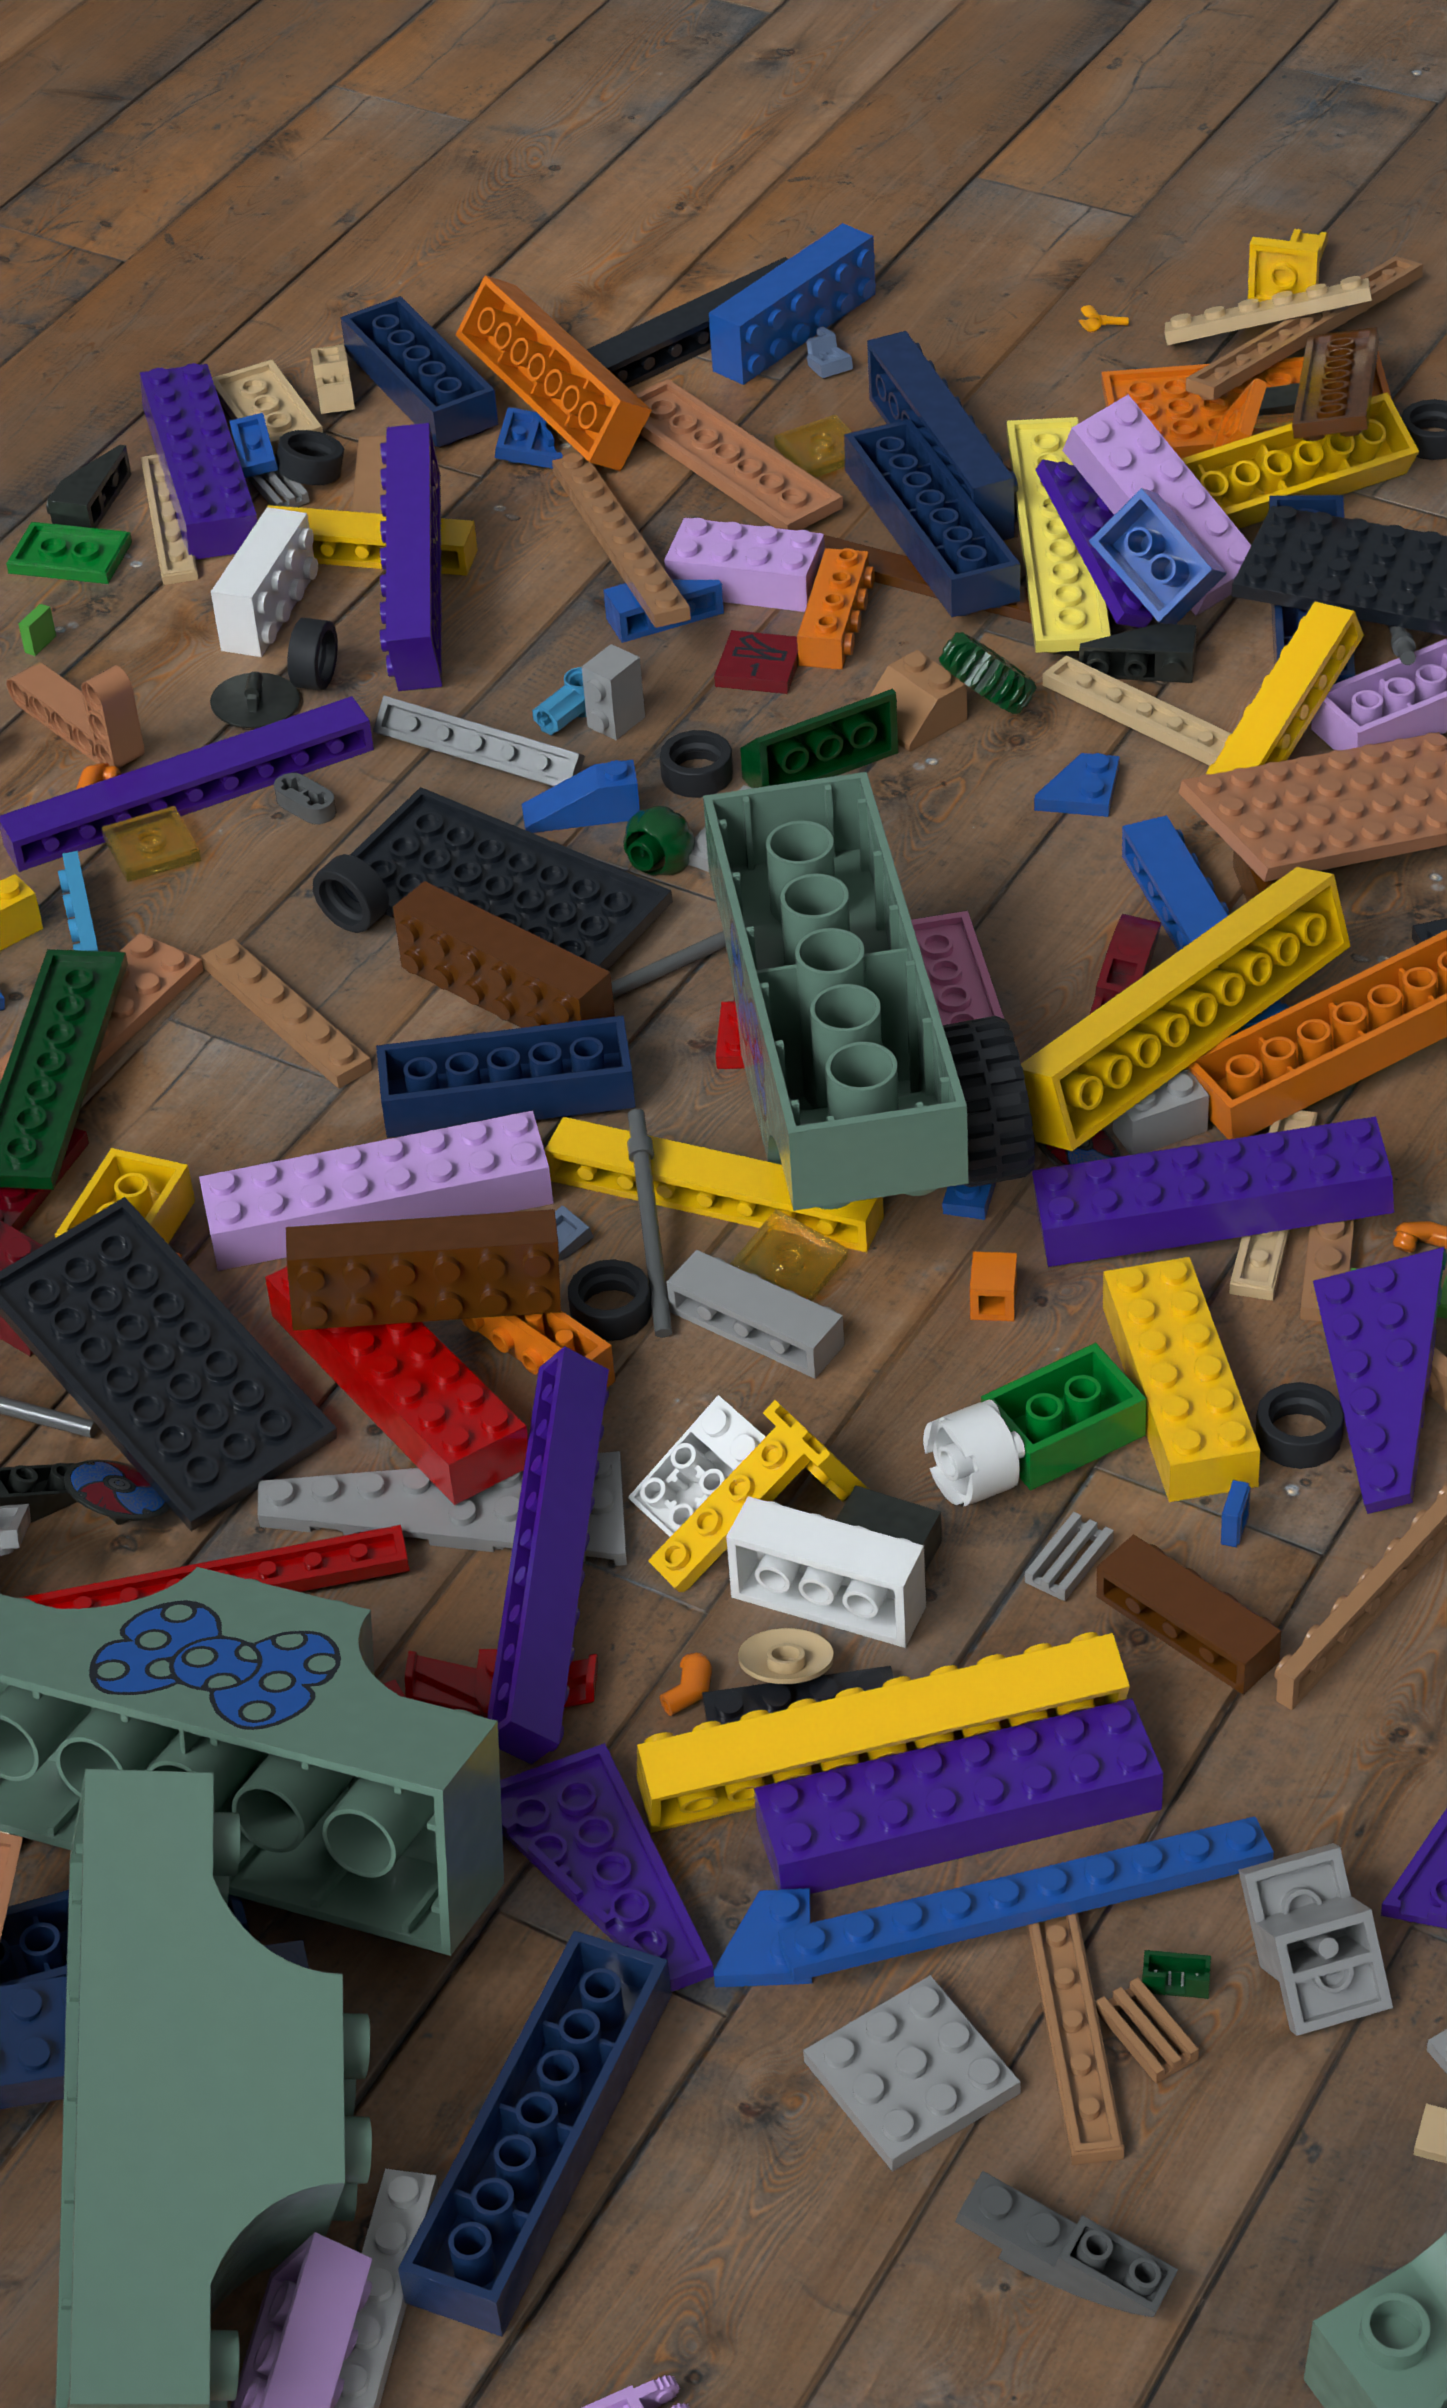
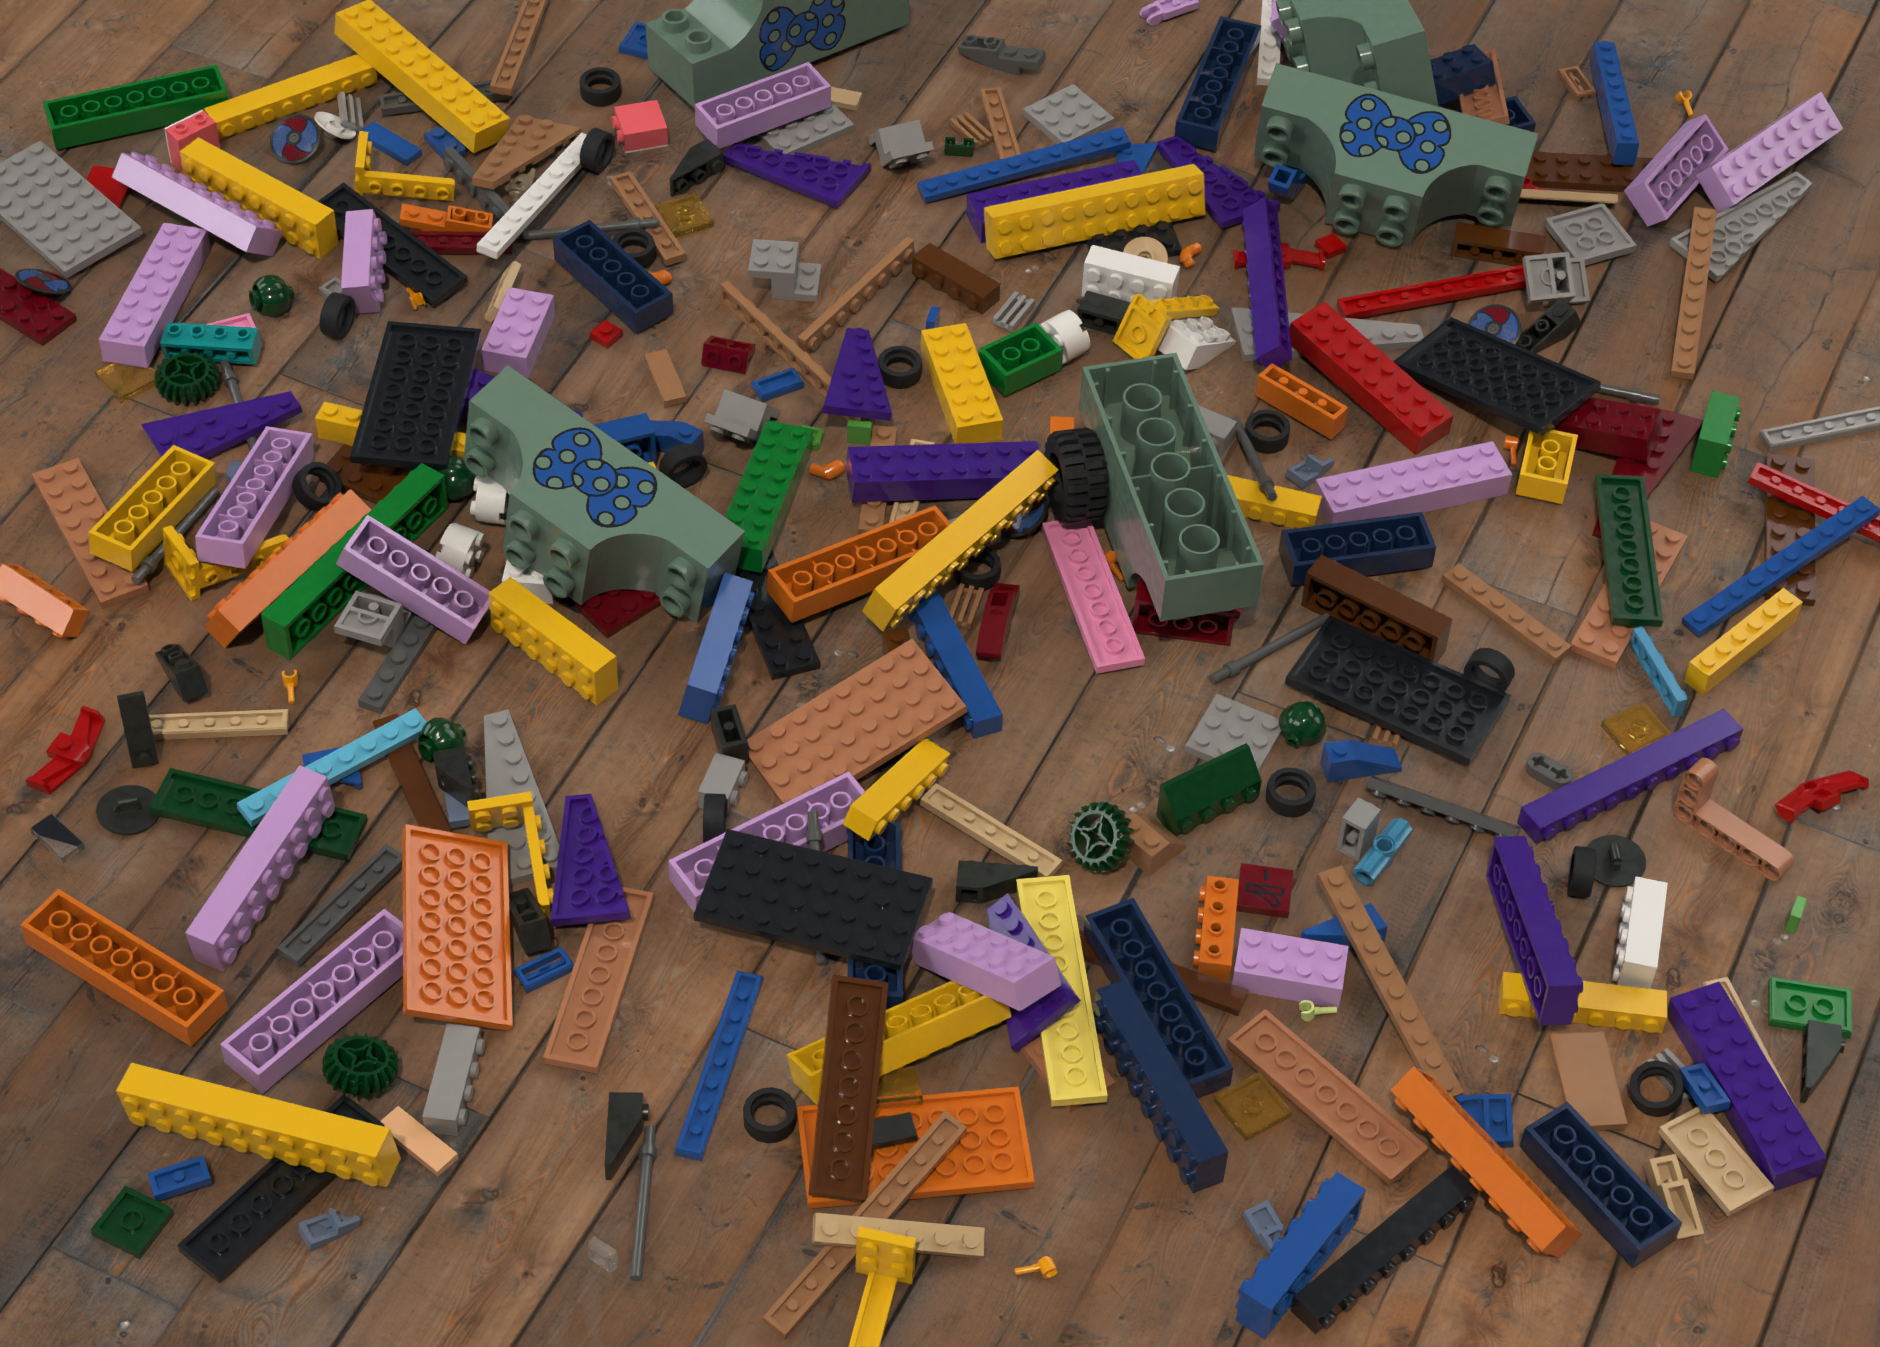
camera: 170 degrees right, 5 degrees up
(423, 1269) = (1363, 374): reddish brown brick -> none
(1081, 787) = (1029, 778): blue wing -> none
(1157, 557) = (985, 902): blue brick -> none
(1242, 415) = (926, 1068): orange tile -> none

